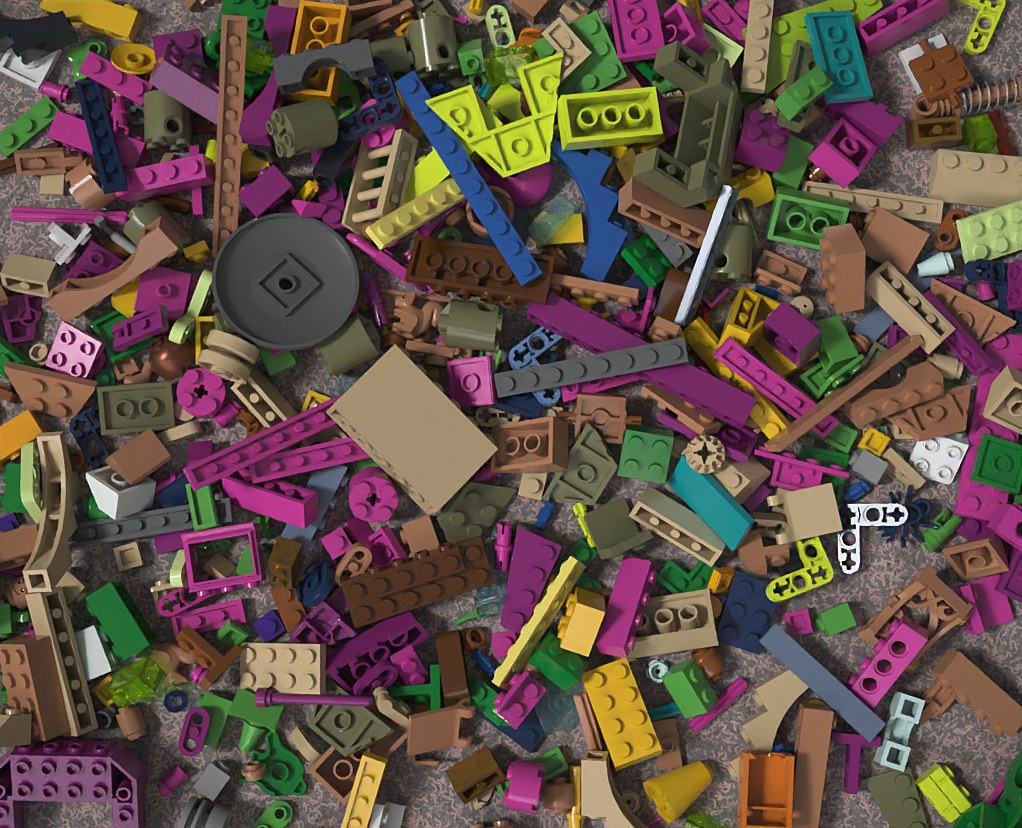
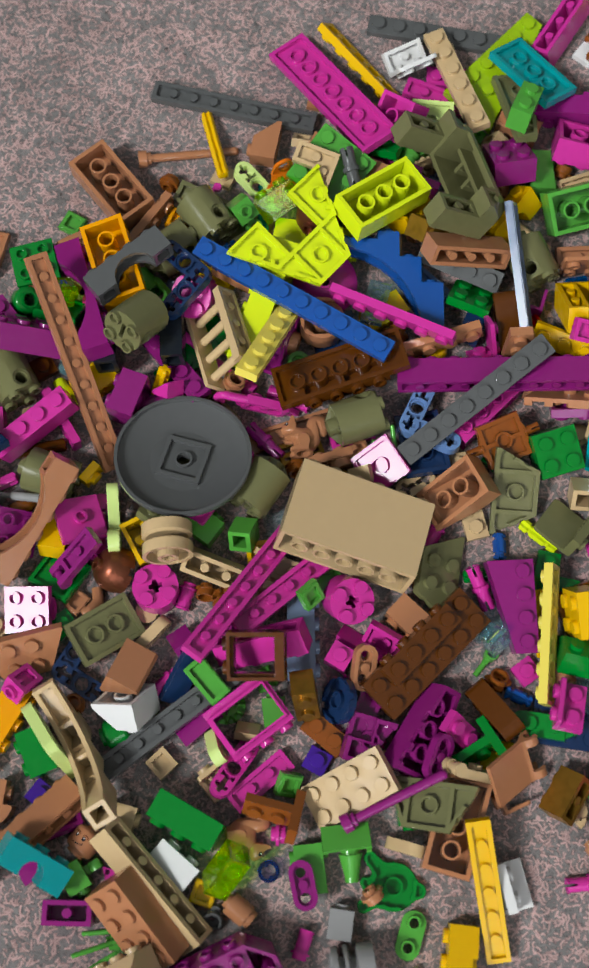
camera: 25 degrees left, 10 degrees down
(35, 420) = (21, 683): none -> dark pink bracket
(274, 519) = (280, 655): none -> reddish brown window
(309, 383) = (243, 534): none -> bright green brick
(338, 473) = (310, 594): none -> bright green tile
(449, 382) = (364, 471): none -> tan tile
(562, 250) = (398, 316): none -> dark pink plate
(596, 70) = (351, 168): none -> dark grey pin

